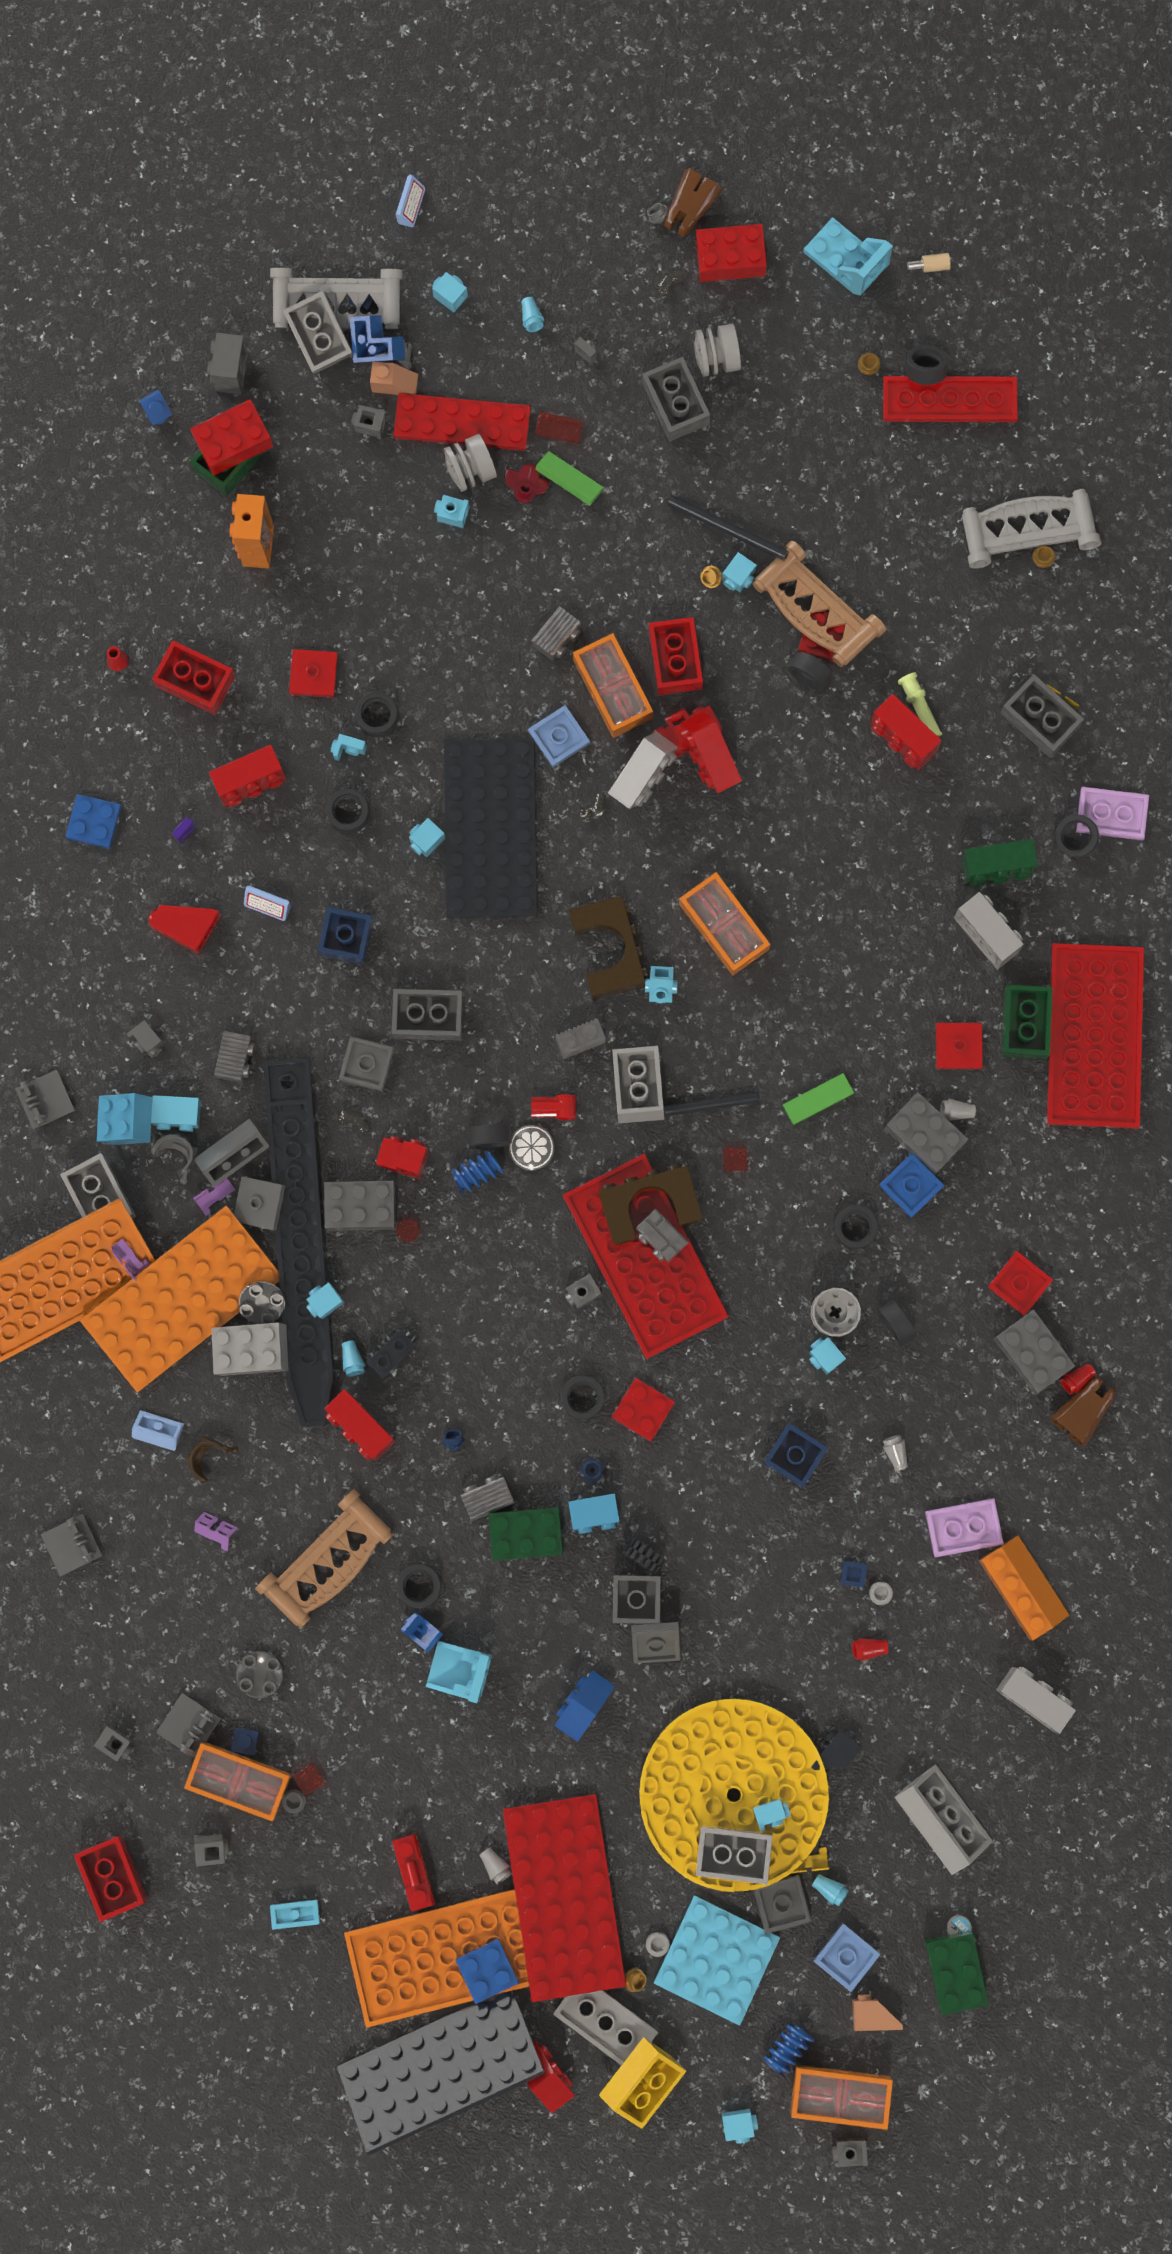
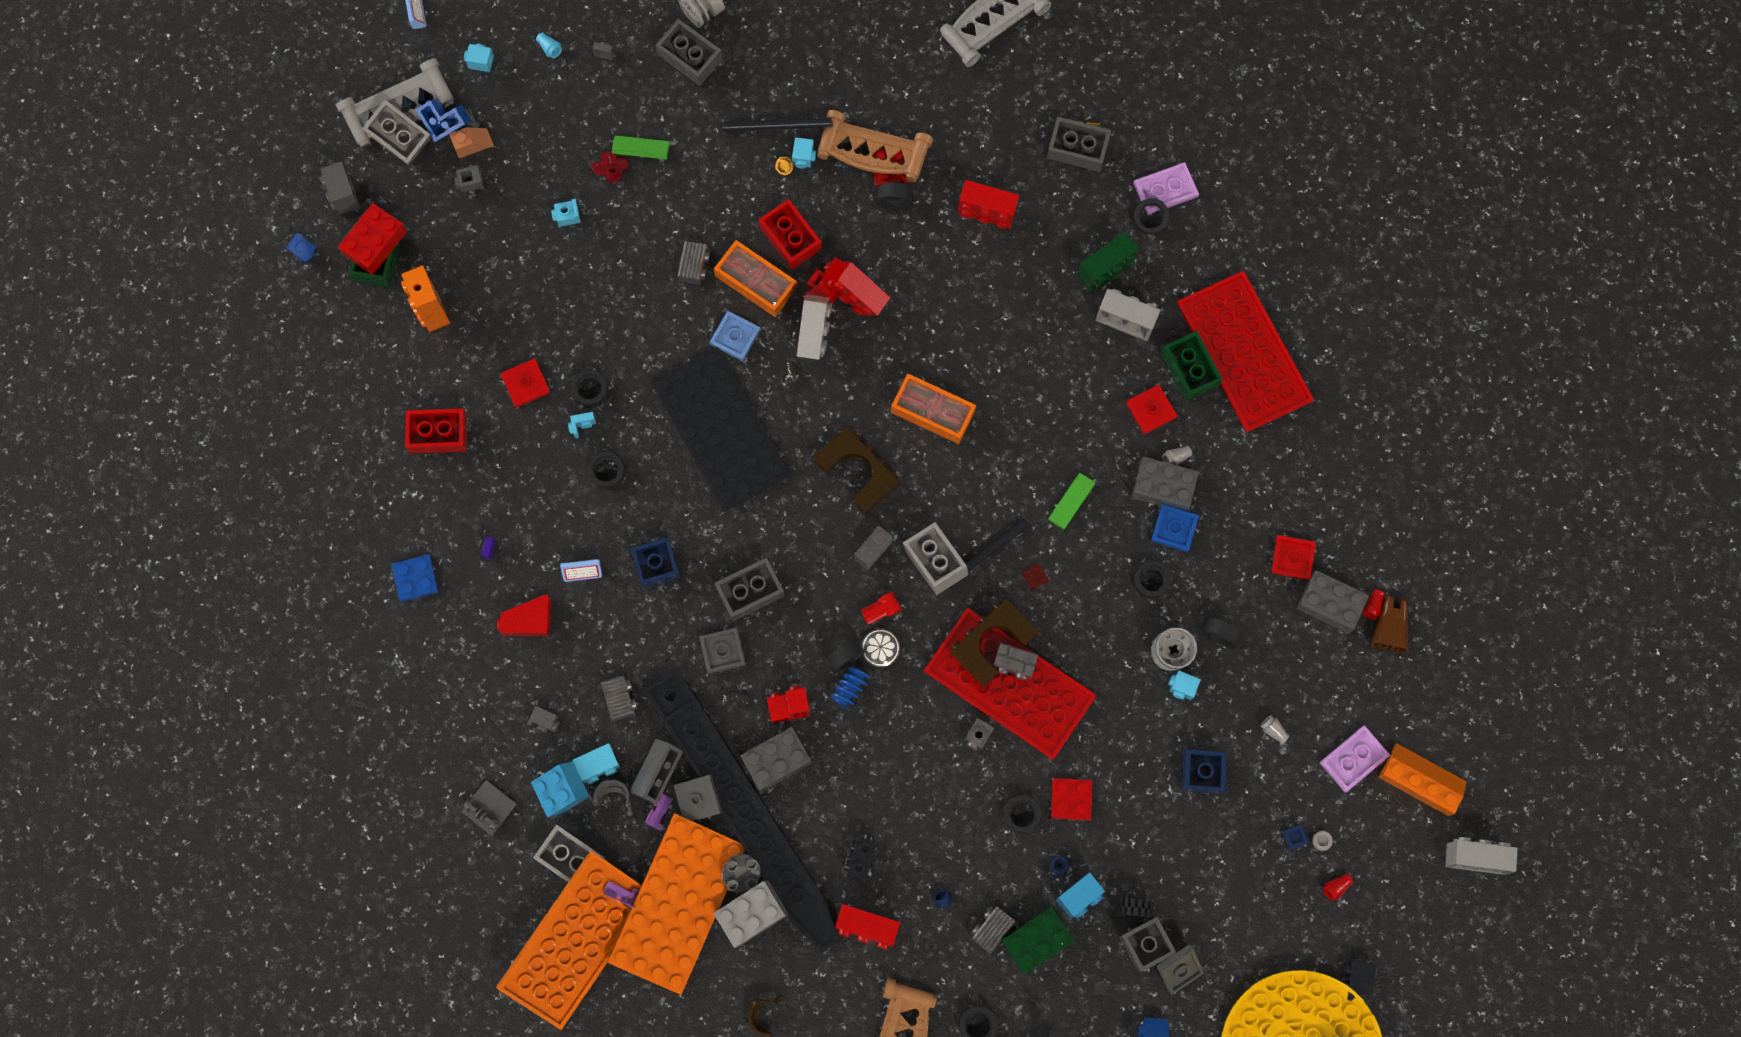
camera: 35 degrees left, 5 degrees down
(119, 662) = (369, 447): red cone -> none
(157, 1430) = (712, 1016): light blue slope -> none
(247, 776) = (517, 482): red brick -> none
(323, 1300) = (788, 846): medium azure brick -> none
(352, 1360) = (833, 880): medium azure cone -> none
(408, 1231) = (821, 759): clear red tile -> none
(426, 838) = (676, 460): medium azure brick -> none
(458, 419) = (538, 146): red plate -> none
(470, 462) = (561, 171): light grey wheel -> none
(558, 427) = (613, 115): clear red tile -> none
(661, 984) = (911, 476): medium azure brick -> none
(916, 696) = (980, 176): yellowish green pin -> none
(944, 1819) = (1465, 985): light grey slope -> none
(1043, 556) = (1015, 33): pearl gold plate -> none

